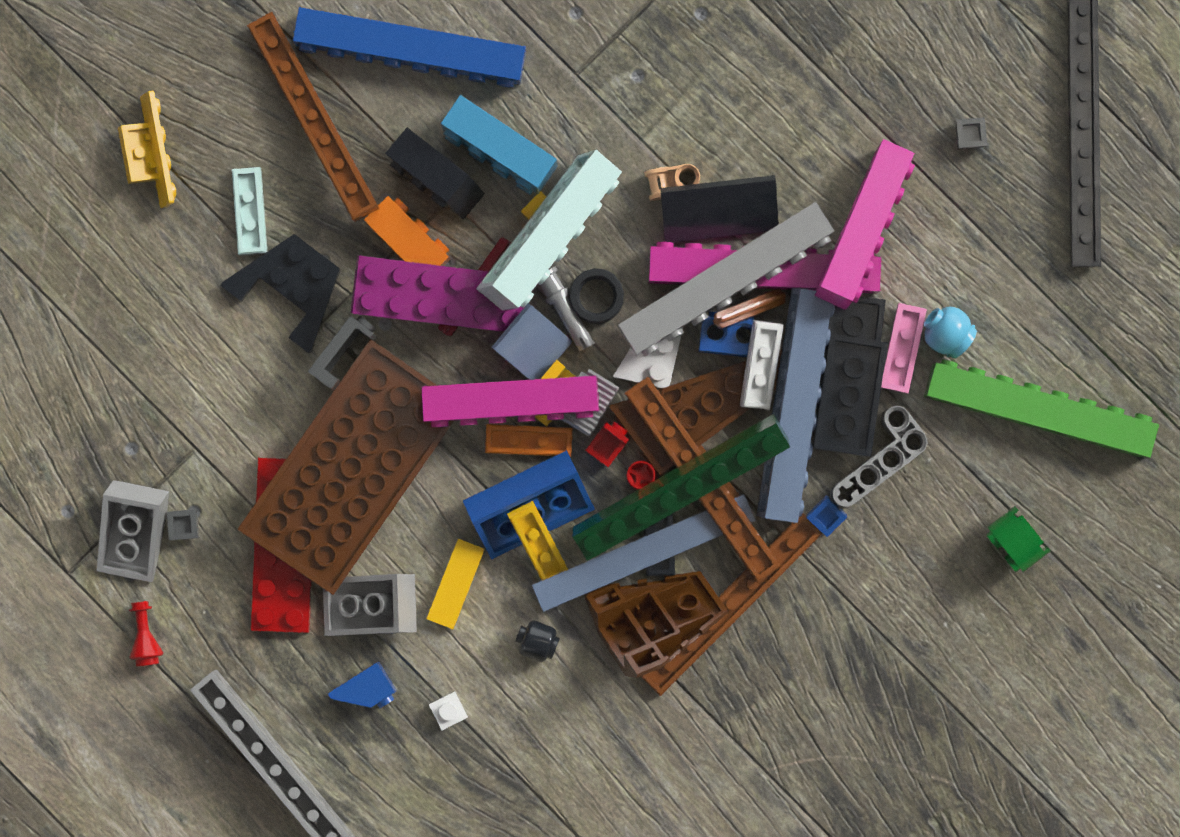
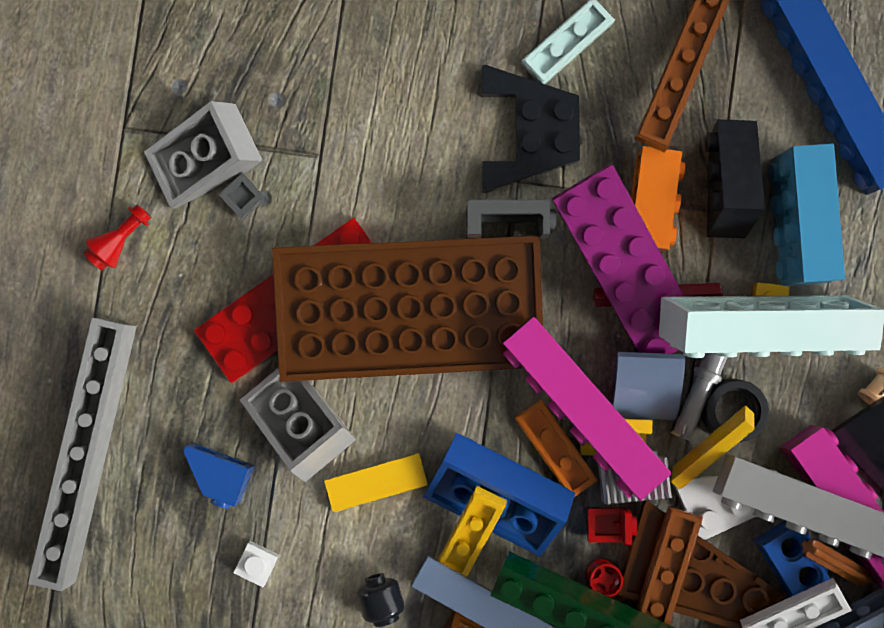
camera: 55 degrees right, 0 degrees up
(606, 333) = (713, 447): none -> yellow tile

